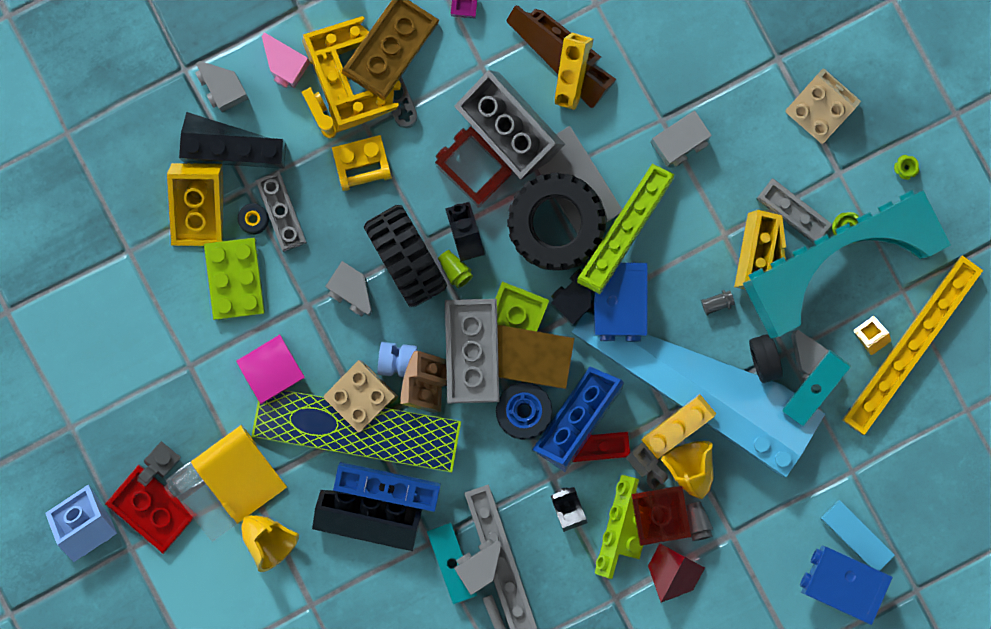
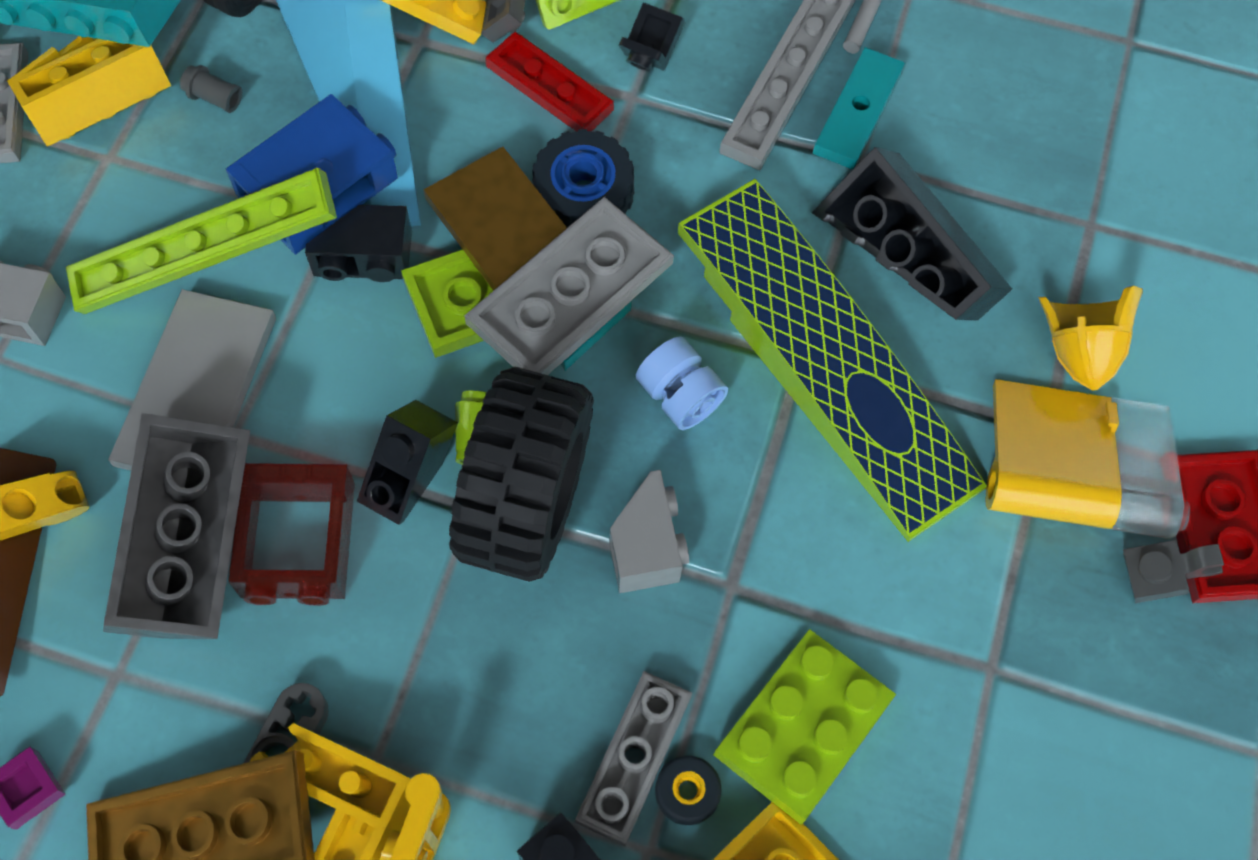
camera: 135 degrees left, 20 degrees down
(270, 369) = (874, 543): dark pink slope -> none
(358, 155) = (429, 720): yellow plate -> none
(360, 395) = (780, 379): tan bracket -> none
(387, 486) = (860, 240): blue piece -> none
(424, 382) = (683, 315): medium nougat slope -> none
(480, 568) = (829, 56): light grey slope -> none
(532, 196) = (284, 283): black tyre -> none
(578, 417) = (523, 102): blue slope -> none

